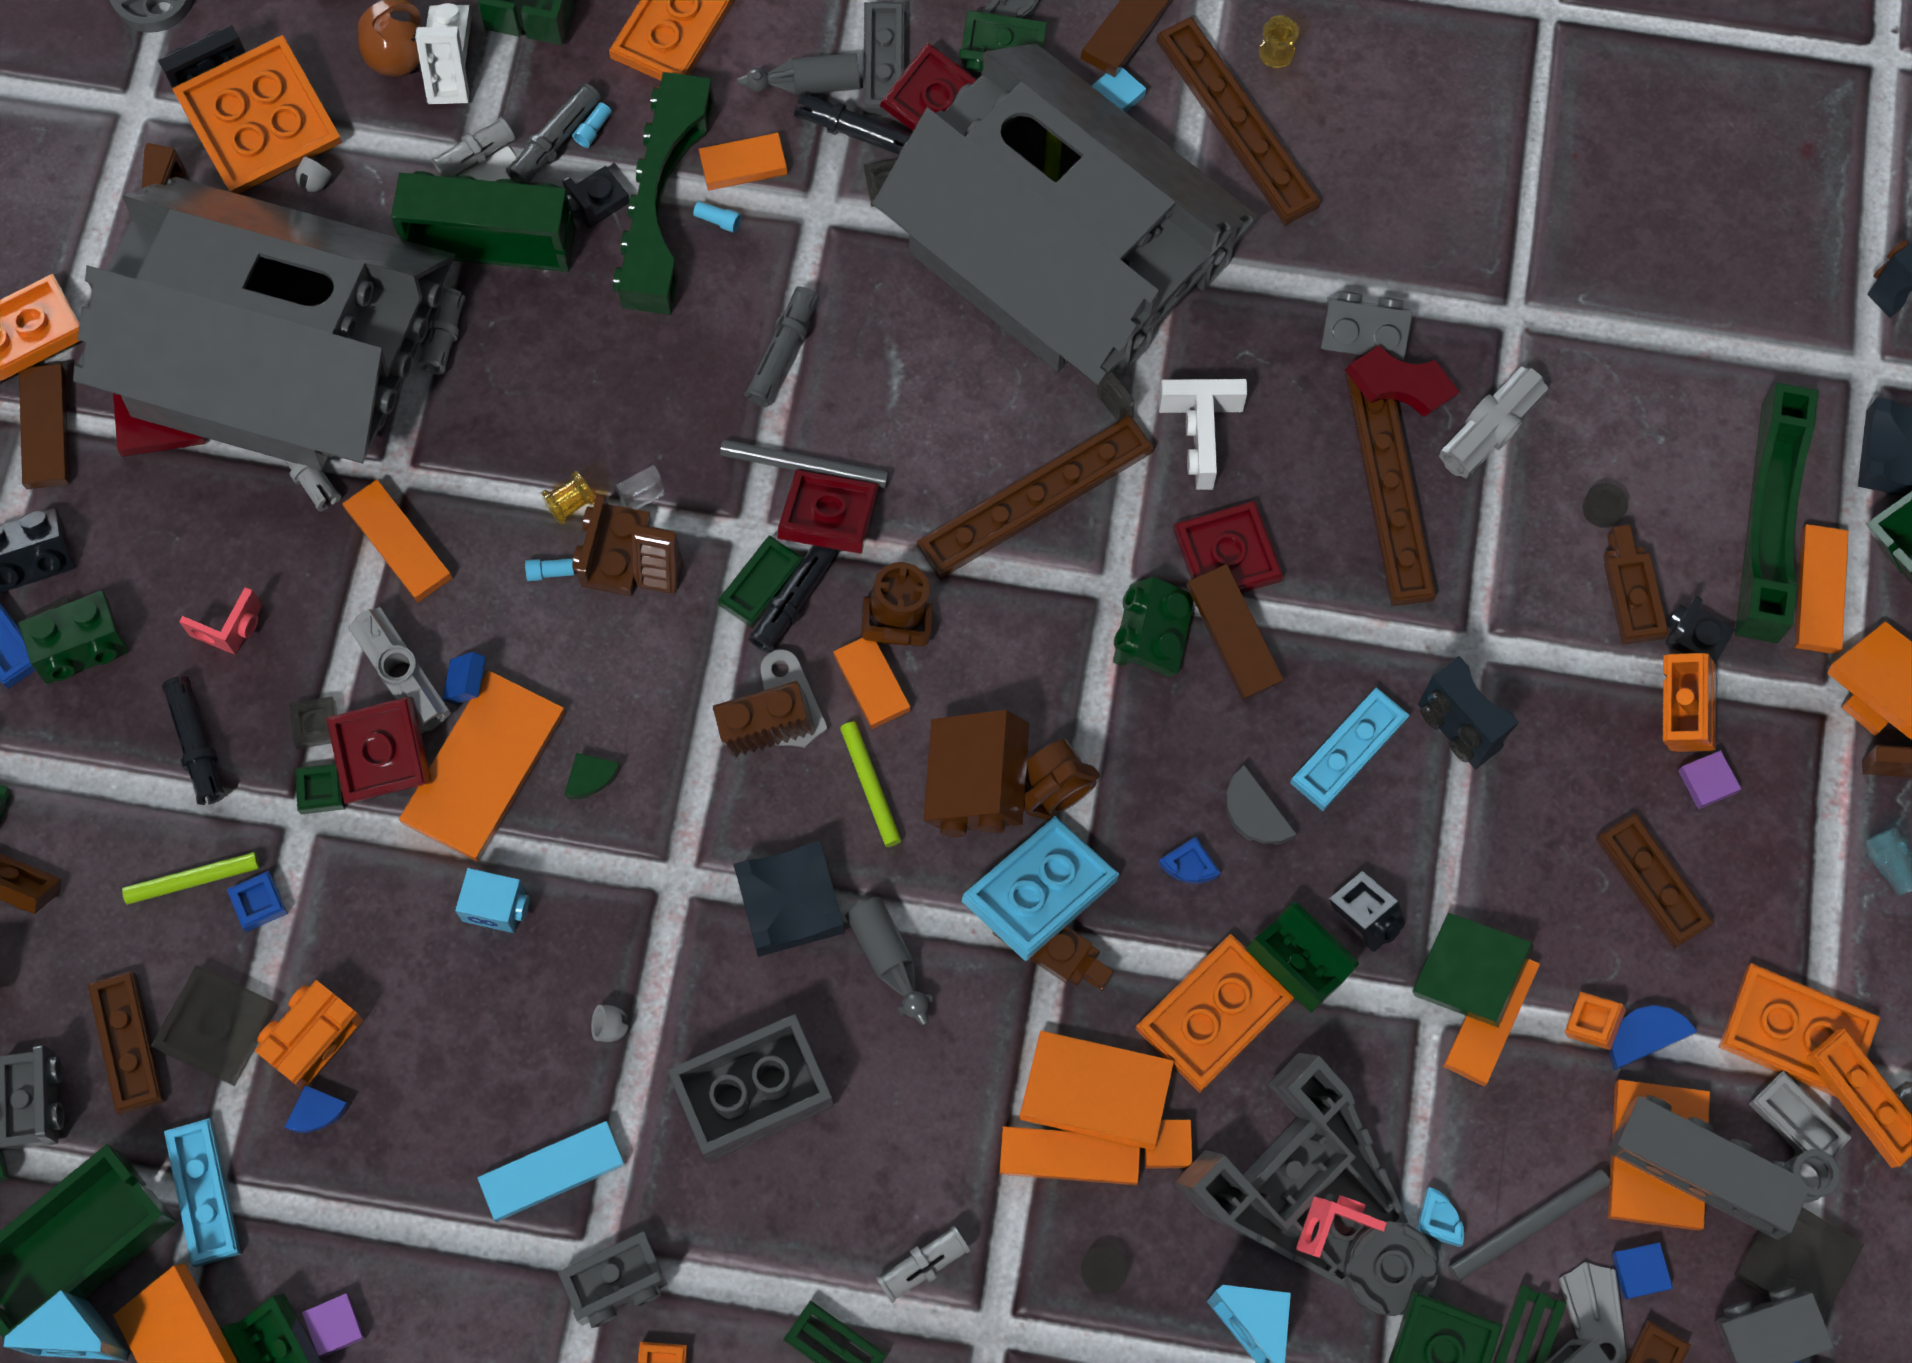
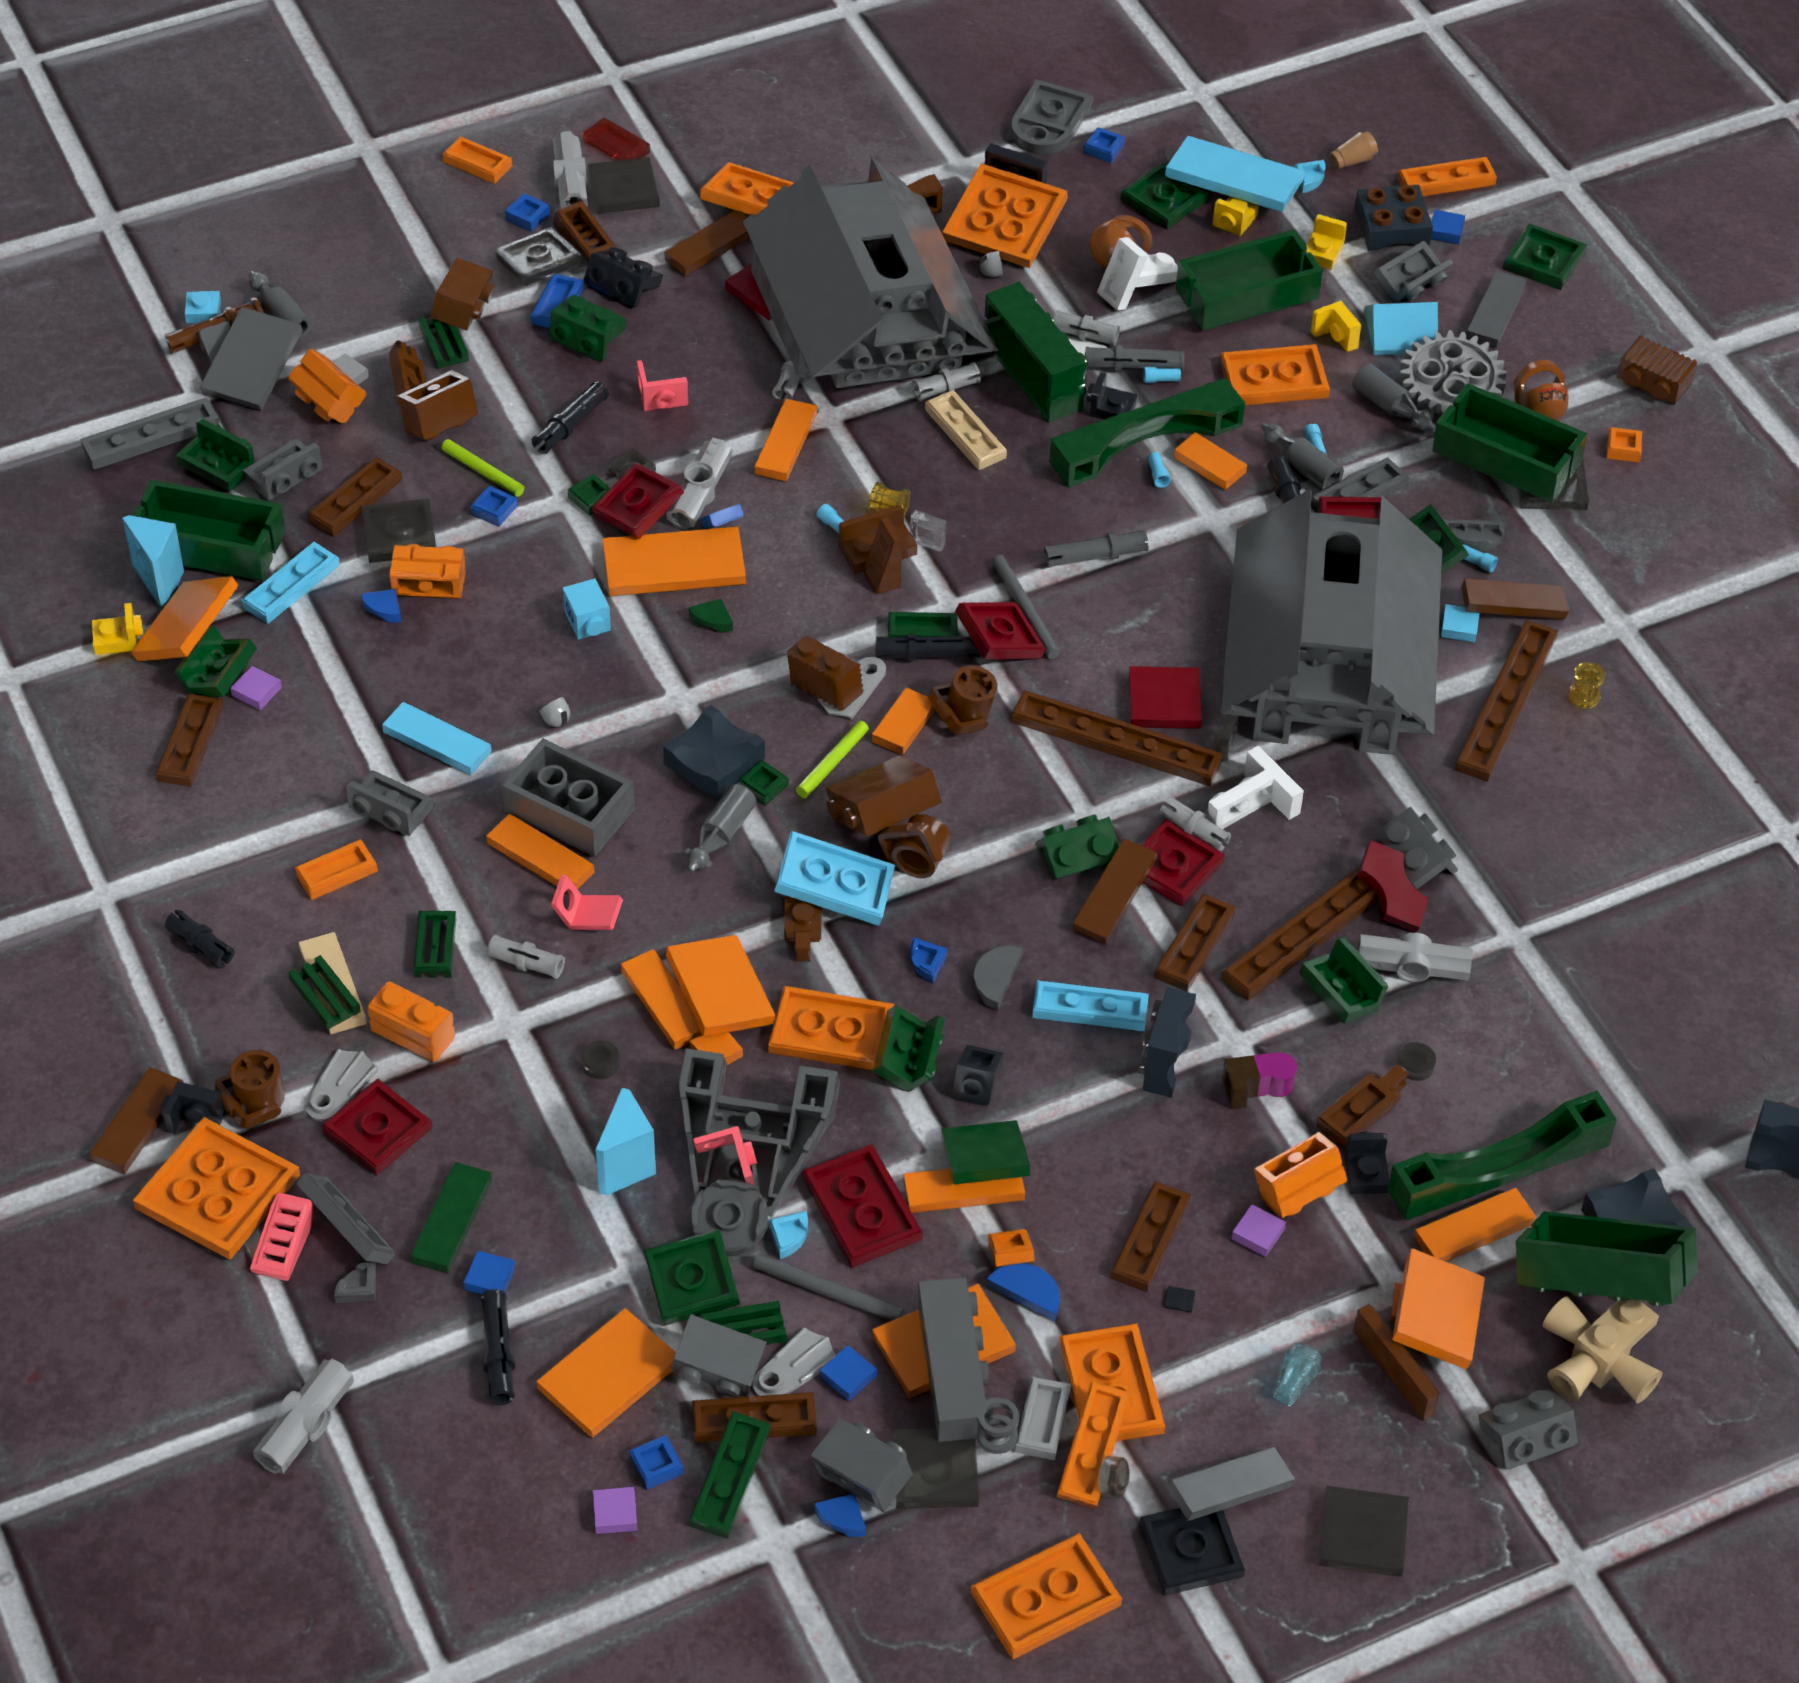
camera: 55 degrees right, 20 degrees down
(72, 872) = (438, 405): none -> reddish brown brick
(520, 357) = (966, 430): none -> tan tile
(783, 47) = (1313, 435): none -> medium azure piece
(790, 1161) = (538, 852): none -> orange tile
(852, 872) = (764, 782): none -> dark green tile
(908, 1160) = (585, 911): none -> coral bracket
(1017, 416) = (1165, 697): none -> dark red tile
(1057, 15) = (1484, 561): none -> medium azure piece
(1200, 501) = (1194, 823): none -> light grey pin
(1337, 601) = (1195, 942): none -> reddish brown tile
(1450, 1126) = (862, 1205): none -> dark red tile
(1485, 503) = (1345, 981): none -> dark green bracket
(1535, 670) = (1258, 1076): none -> leg
(1737, 903) = (1179, 1299): none -> black window

